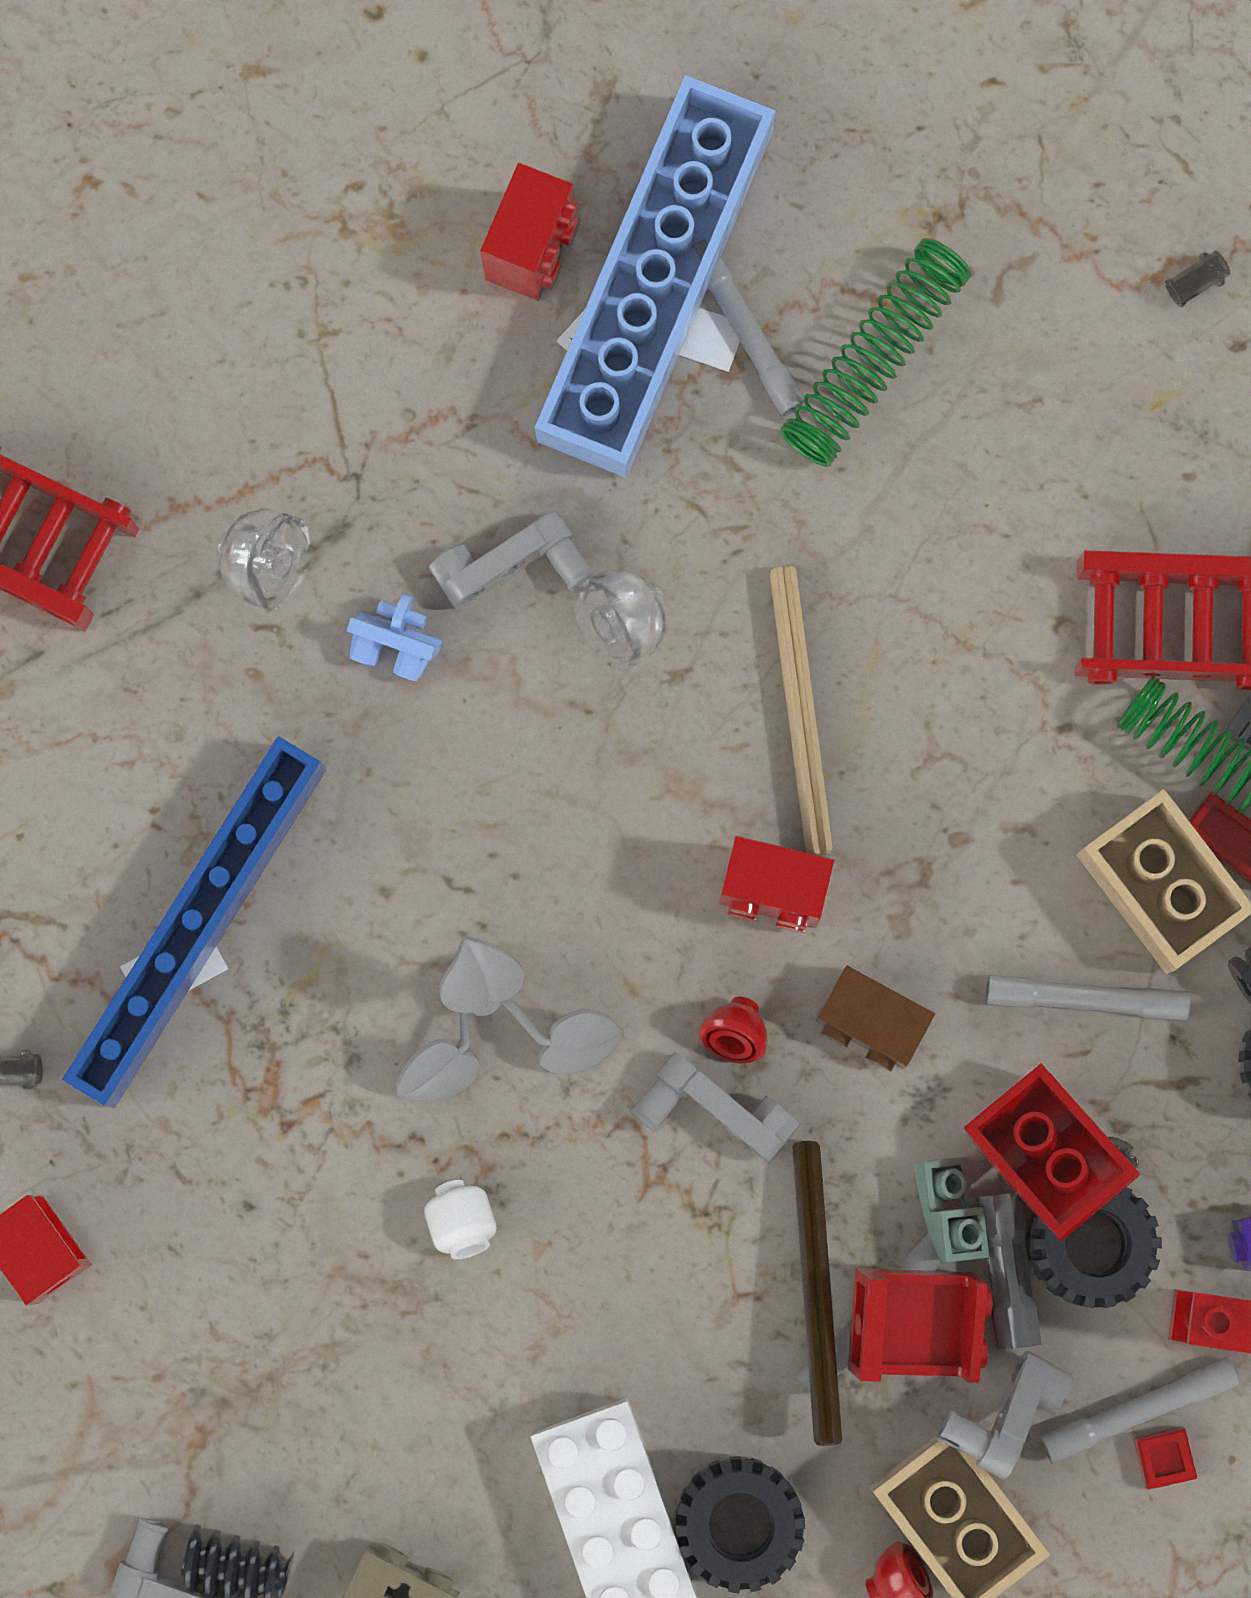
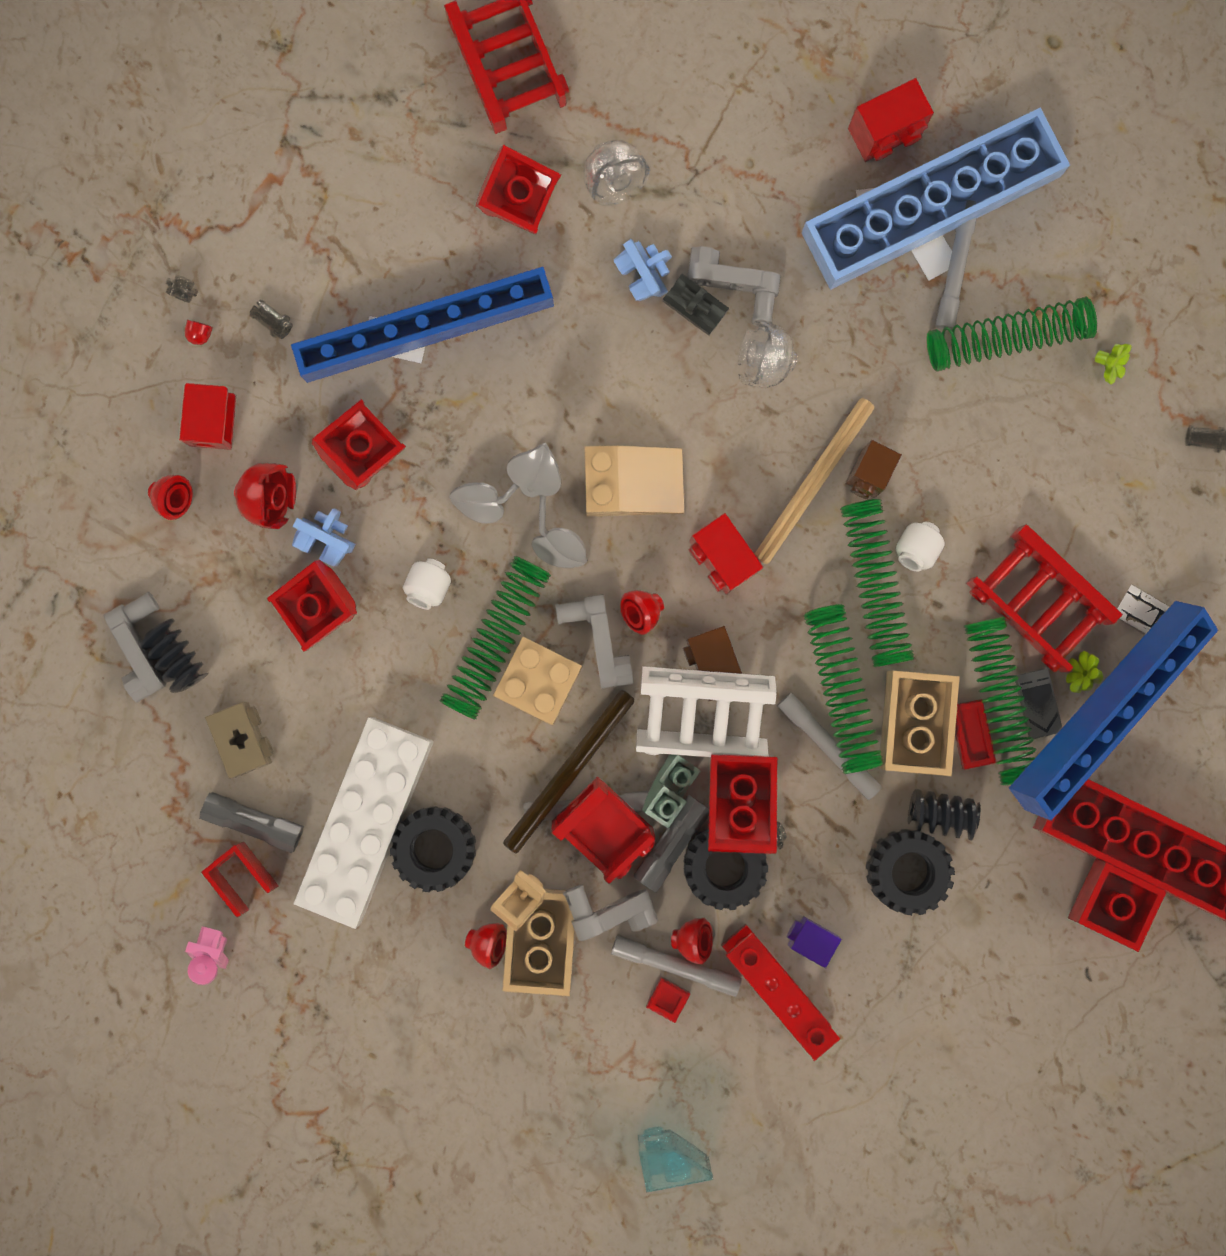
camera: 35 degrees right, 5 degrees up
(69, 1381) = (171, 496): none -> red brick
(168, 673) = (517, 189): none -> red slope
(179, 1281) = (265, 494): none -> red cylinder
(239, 1130) = (356, 446): none -> red slope
(270, 1278) = (308, 532): none -> light blue hips
(349, 1360) = (314, 604): none -> red slope
(489, 627) = (695, 304): none -> pearl dark grey hips
(556, 1102) = (526, 569): none -> green piece
(594, 890) = (633, 480): none -> tan slope
(689, 1218) = (537, 681): none -> tan brick
(857, 640) = (872, 470): none -> reddish brown brick
(886, 1053) = (704, 685): none -> white fence
(894, 685) = (862, 510): none -> green piece
(895, 1493) = (519, 900): none -> tan bracket
(949, 858) = (864, 761): none -> green piece
(986, 679) = (920, 546): none -> white head
(1018, 283) = (1114, 361): none -> lime plant
(1133, 1361) = (694, 940): none -> red brick

